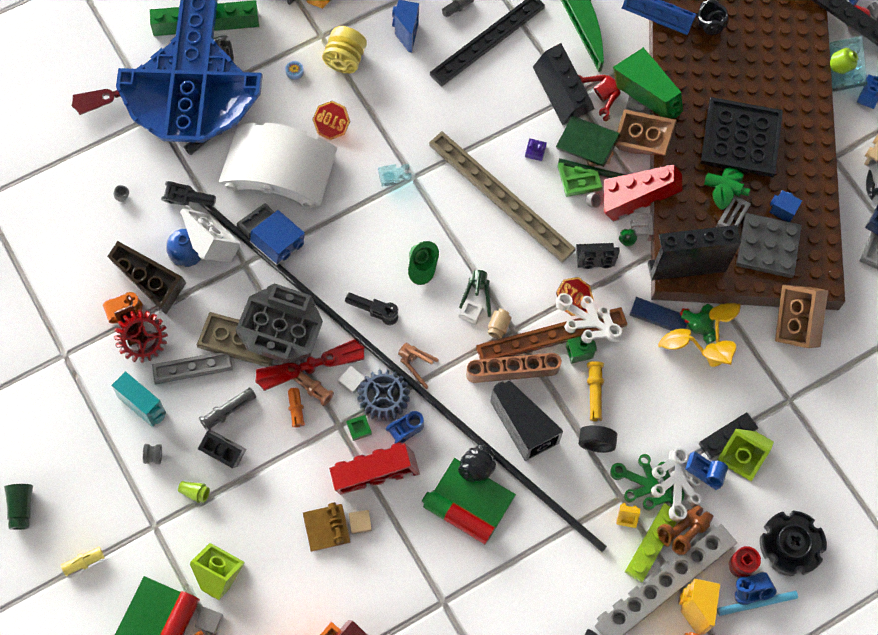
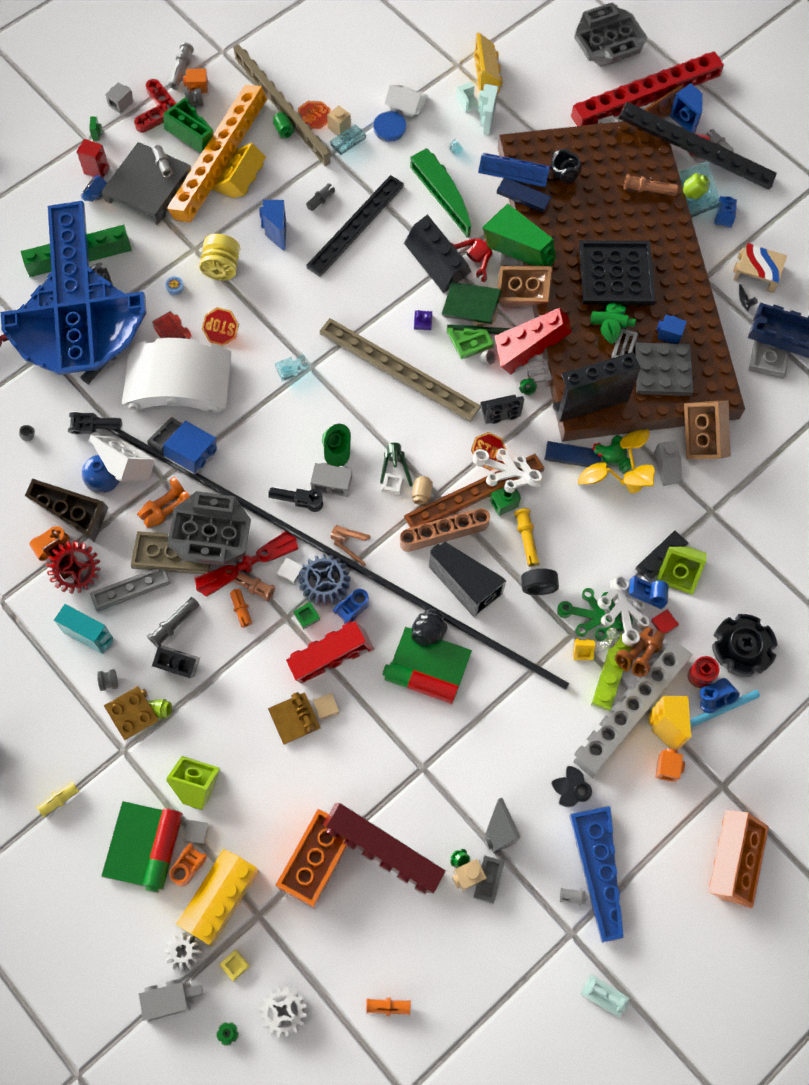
camera: 10 degrees left, 0 degrees up
(169, 490) = (131, 712): none -> pearl gold hinge
(228, 295) = (152, 512): none -> orange piece
(281, 112) = (170, 327): none -> clear red brick
(411, 295) = (331, 479): none -> light grey hinge
(656, 513) = (611, 640): none -> clear arm
(663, 39) = (523, 195): none -> dark blue tile
(716, 504) = (664, 622): none -> red tile
(755, 342) = (668, 462): none -> light grey slope
(788, 49) = (654, 186): none -> nougat pin

